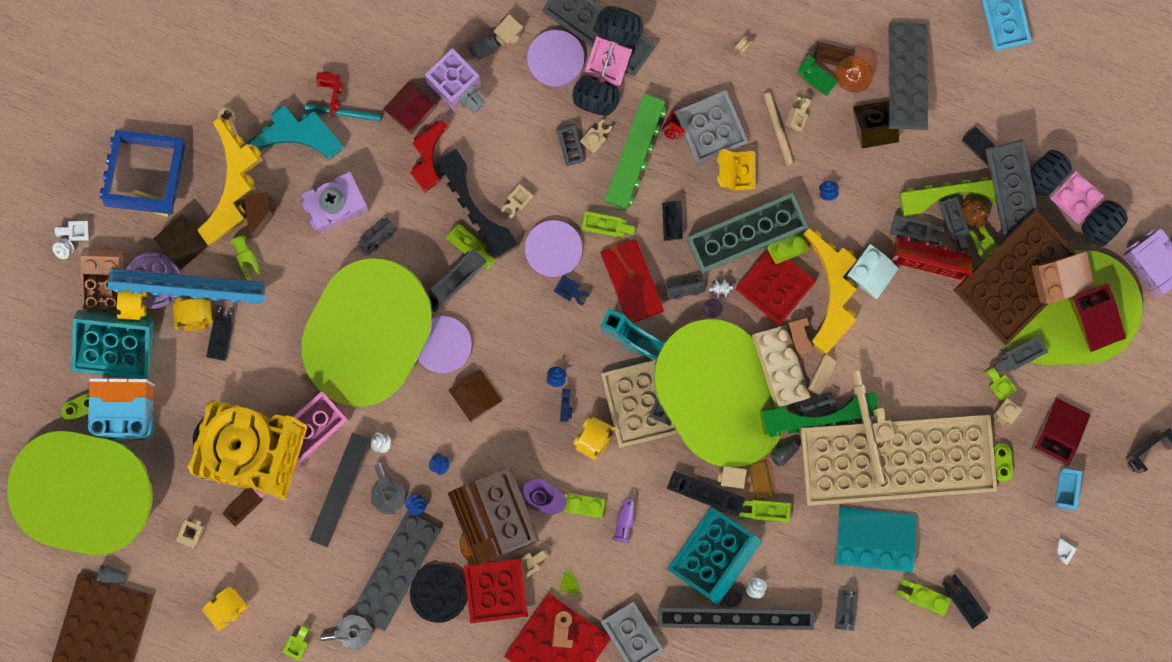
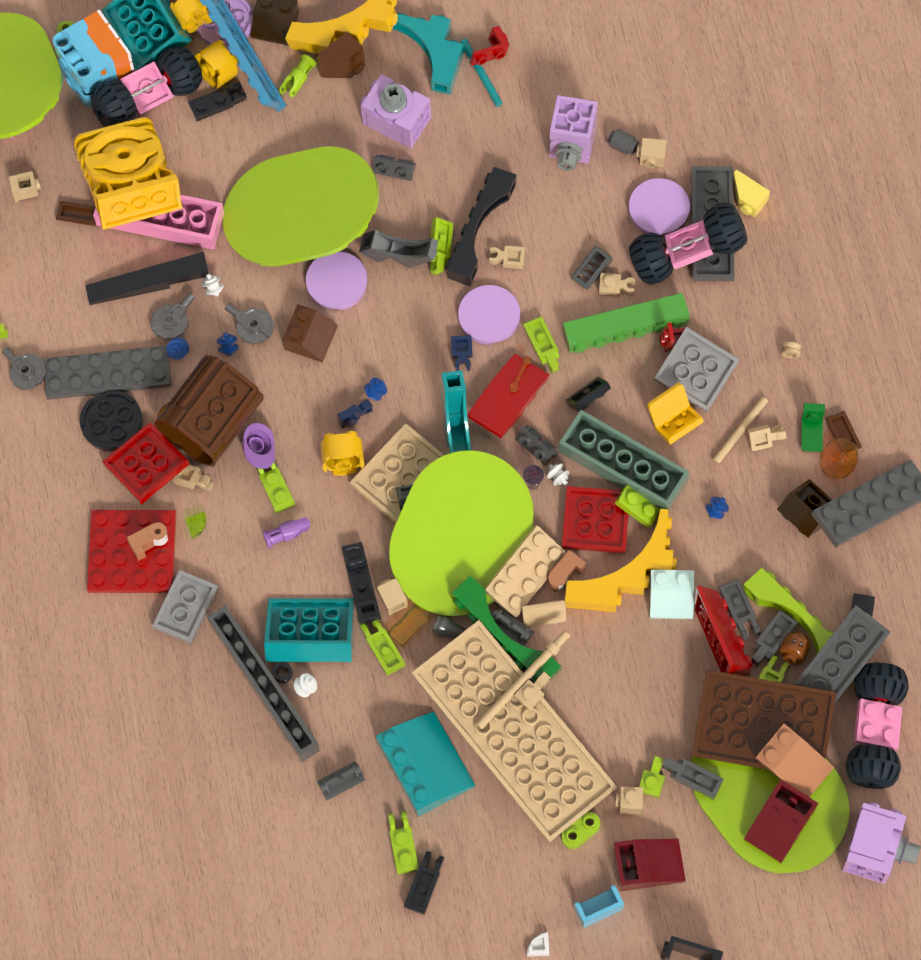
camera: 60 degrees right, 15 degrees down
(173, 383) = (133, 95): none -> black plate
(410, 108) = (524, 121): dark red slope -> none
(424, 144) = (501, 153): red arch -> none
(436, 433) = (253, 324): none -> flat silver piece

